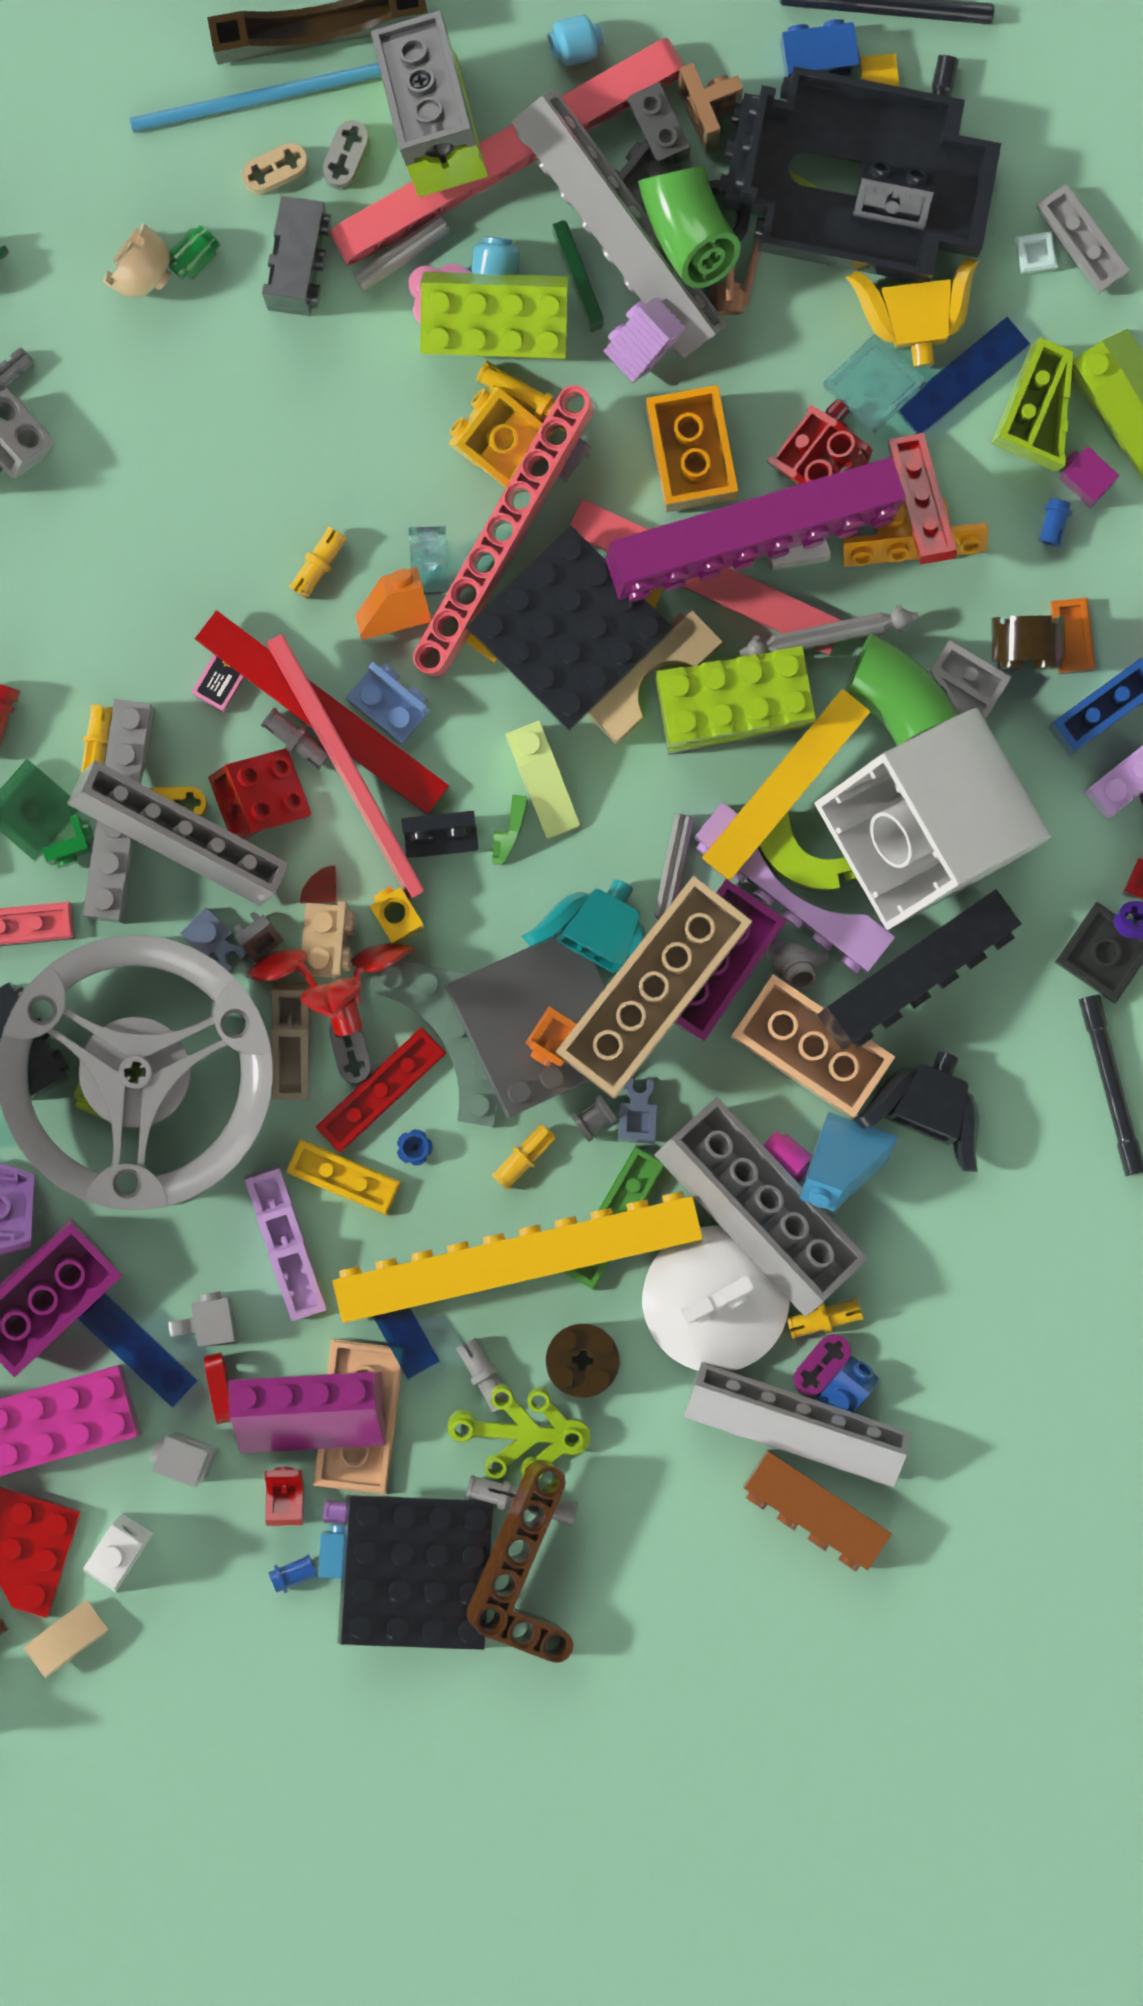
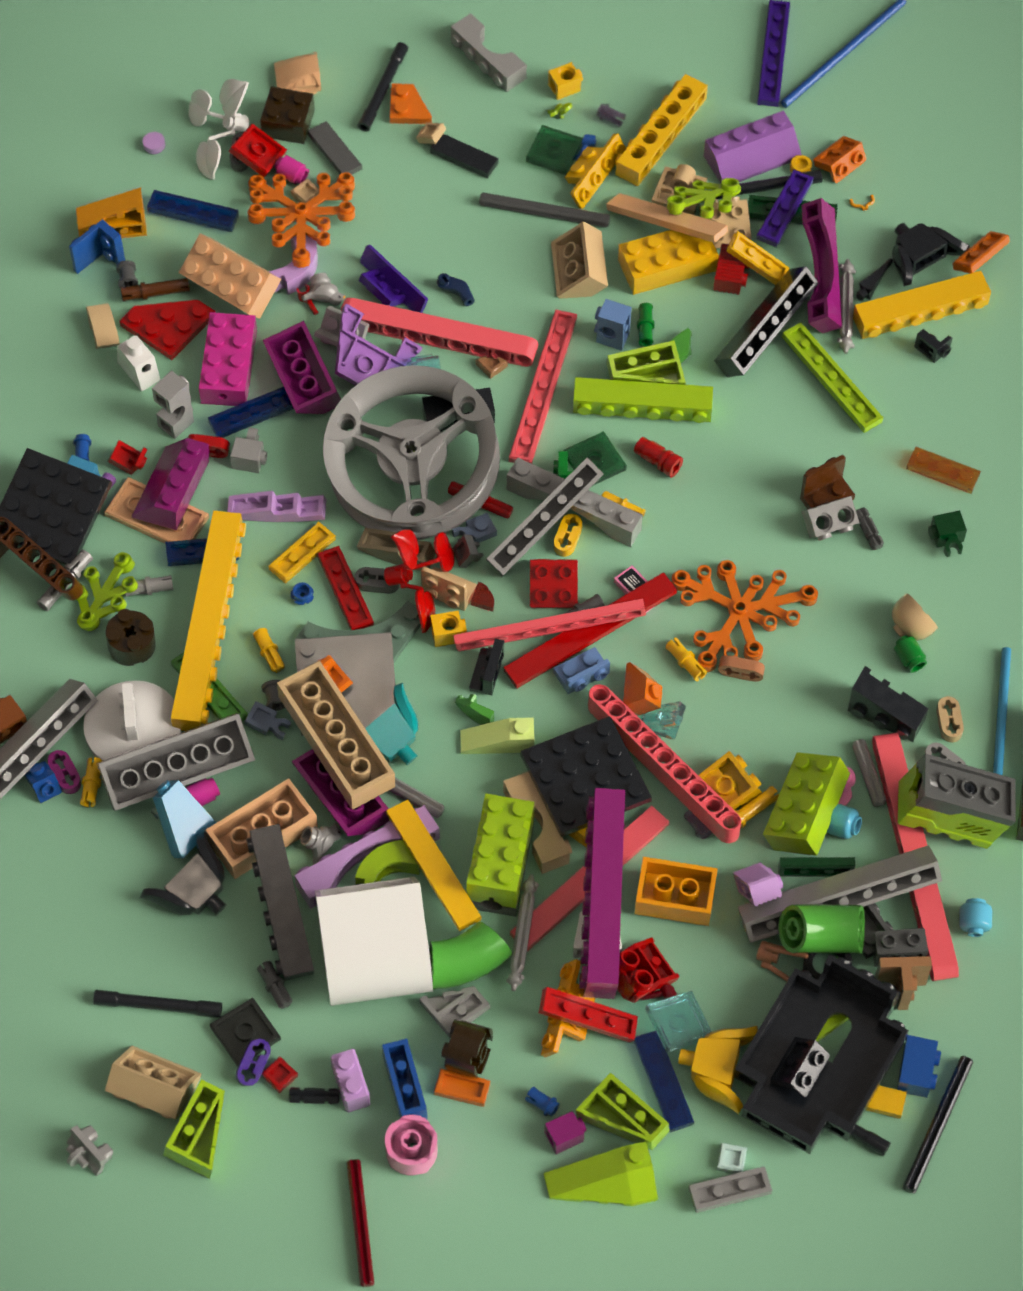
camera: 105 degrees right, 25 degrees down
(162, 927) = (491, 504): none -> red axle
(182, 481) = (767, 603): none -> orange plant
(304, 480) = (741, 668): none -> nougat beam
(1028, 937) = (275, 984): none -> dark grey axle

